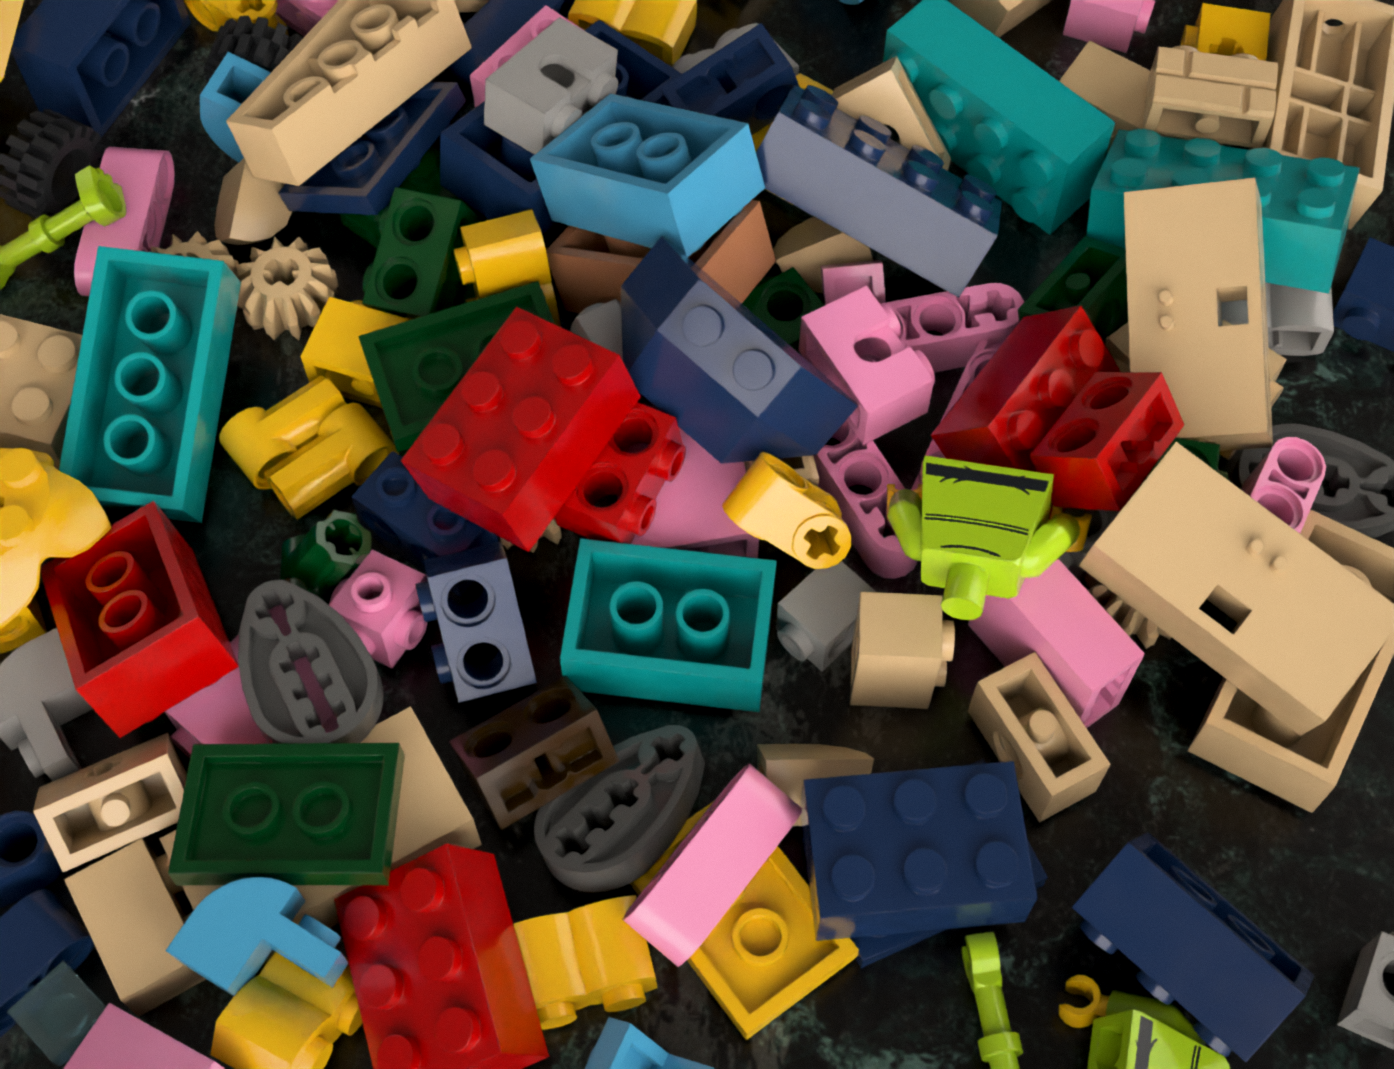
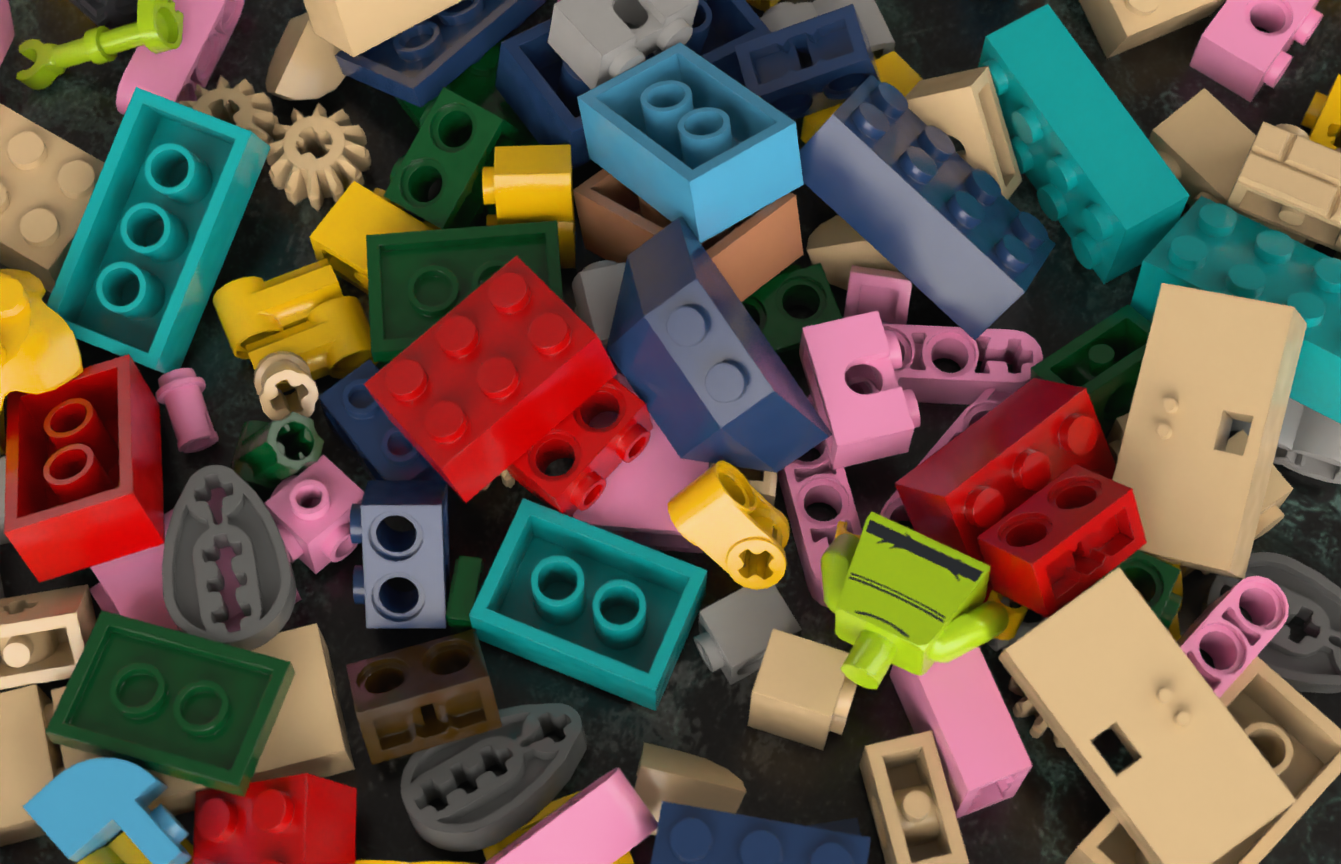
camera: 15 degrees right, 5 degrees up
(214, 537) = (187, 410): none -> bright pink pin
(298, 501) = (279, 367): none -> tan bush
(545, 646) = (466, 584): none -> dark green tile

